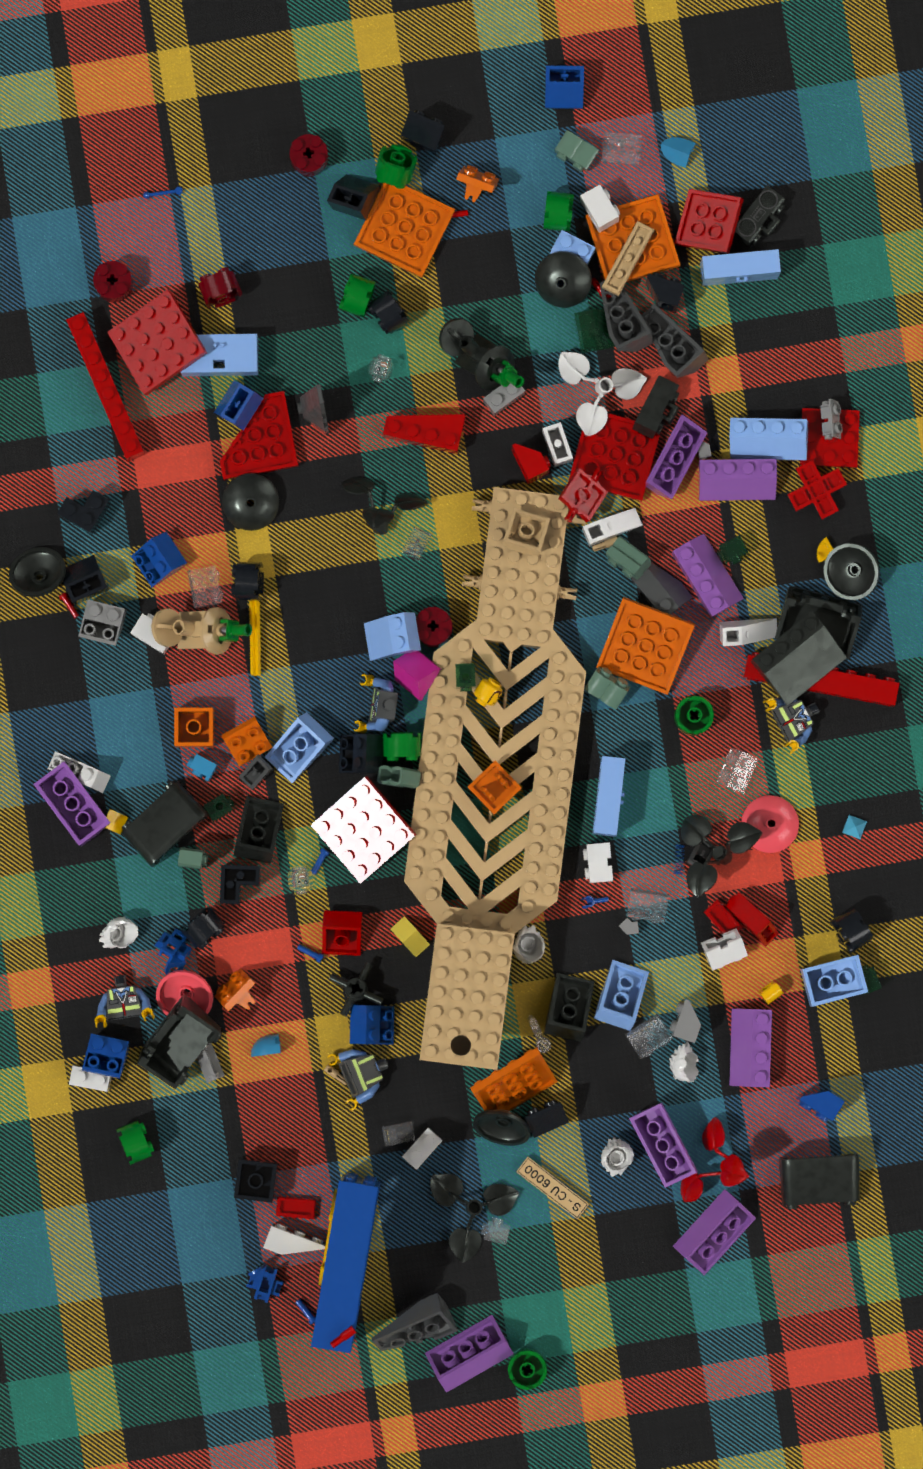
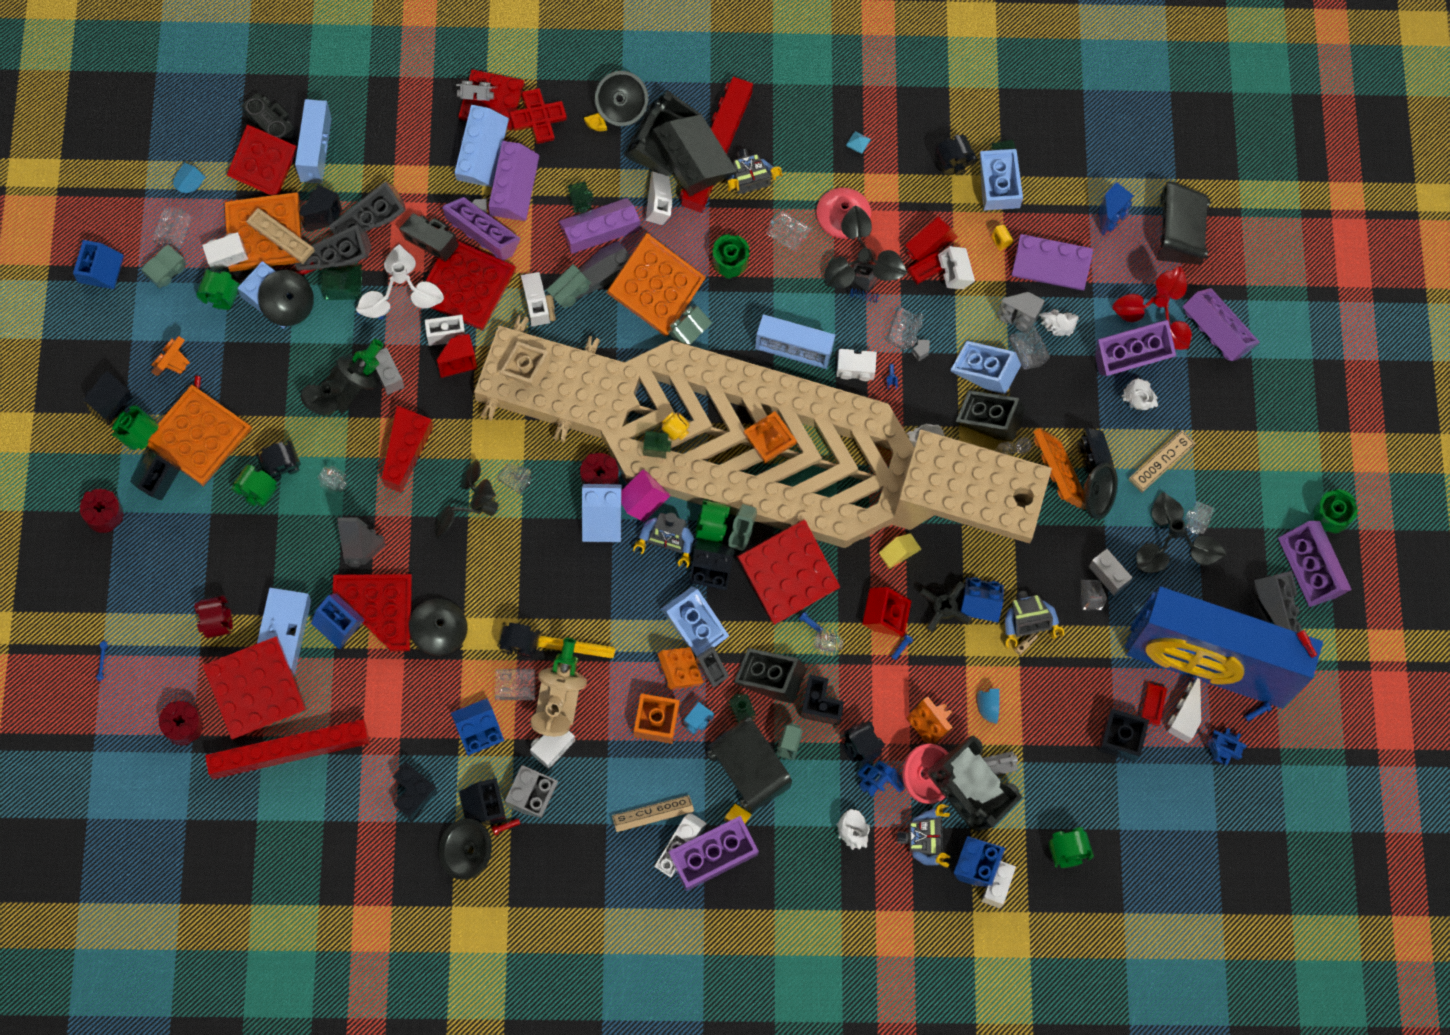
camera: 85 degrees left, 15 degrees down
(103, 740) = (652, 813): none -> tan tile
(583, 495) = (500, 312): red plate -> none

